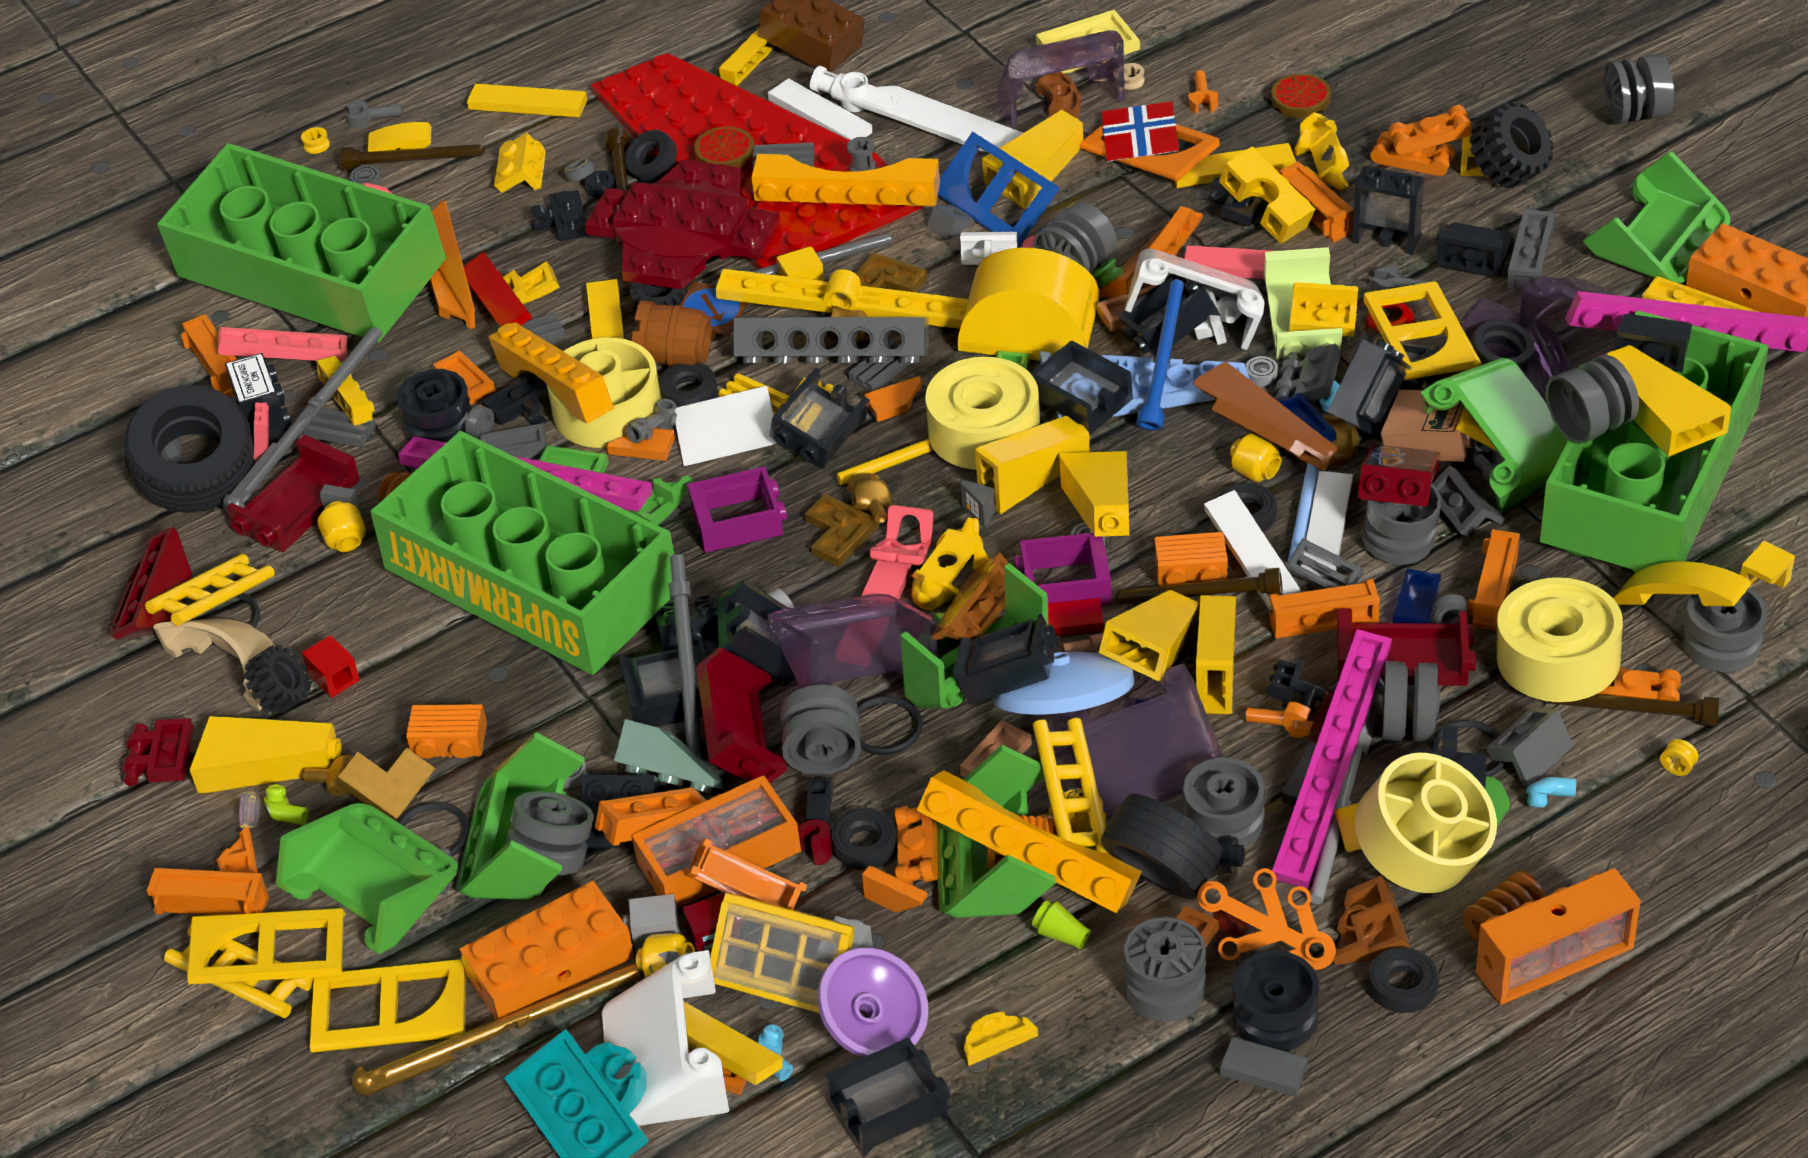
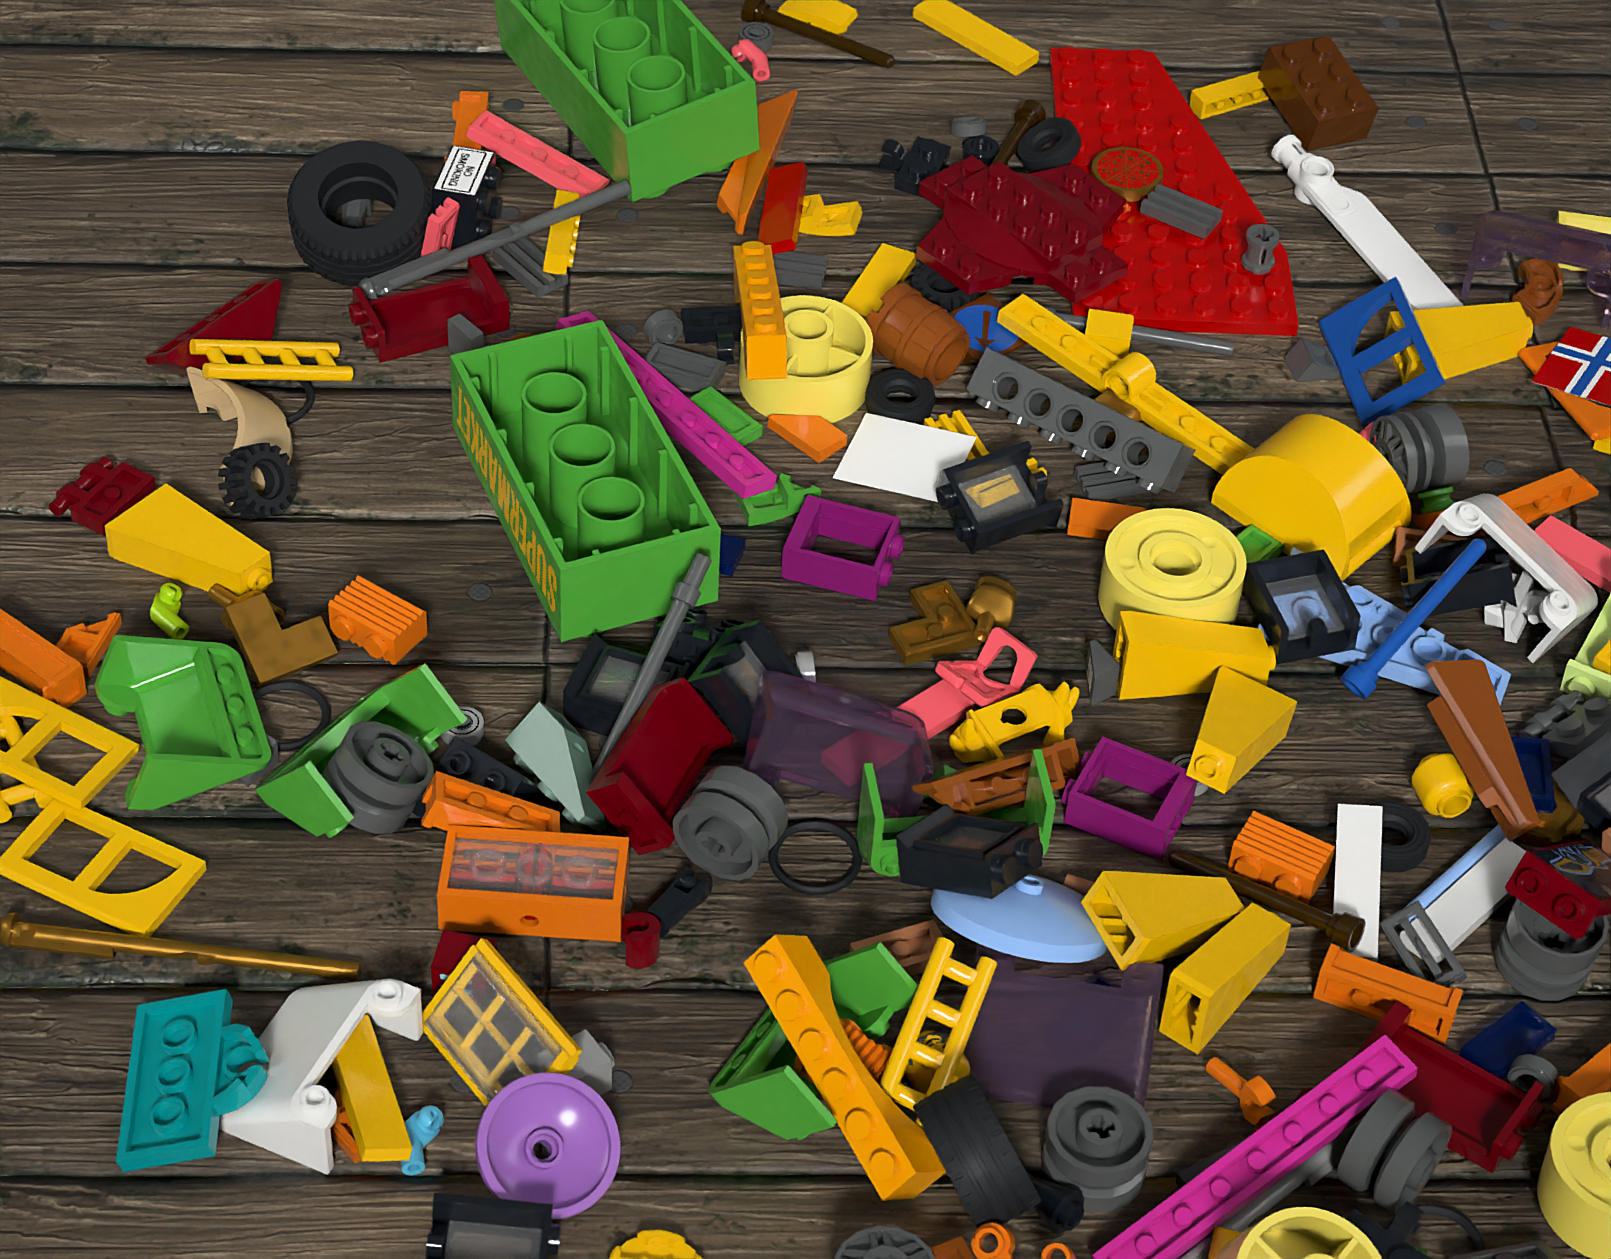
camera: 25 degrees right, 0 degrees up
(249, 809) = (132, 596): clear tile -> none
(330, 666) = (323, 496): red brick -> none
(342, 526) = (436, 361): yellow head -> none
(434, 405) = (627, 289): black wheel -> none
(477, 382) = (688, 278): orange tile -> none
(520, 161) = (917, 92): yellow bracket -> none
(547, 951) = (282, 900): orange brick -> none
(650, 917) = (409, 930): light grey brick -> none
(661, 950) = (392, 961): yellow head -> none
(662, 418) = (845, 417): dark grey bar -> none
(740, 877) = (525, 937): orange container -> none
(818, 110) = (1264, 184): white tile -> none
(864, 820) = (689, 988): black tyre -> none
(886, 461) = (1041, 579): yellow bar -> none
(891, 274) = (1201, 385): pearl gold tile -> none
(891, 891) = (670, 1035): orange tile -> none
(903, 183) = (1283, 297): light orange arch -> none
(916, 846) = (731, 1013): orange plate -> none
(979, 245) = (1320, 400): white hips -> none
(1059, 924) = (817, 1175): lime cone -> none
(1076, 616) = (1096, 846): red tile -> none
(1262, 370) = (1528, 694): light grey tile -> none
(1285, 681) = (1281, 1052): black arm -> none

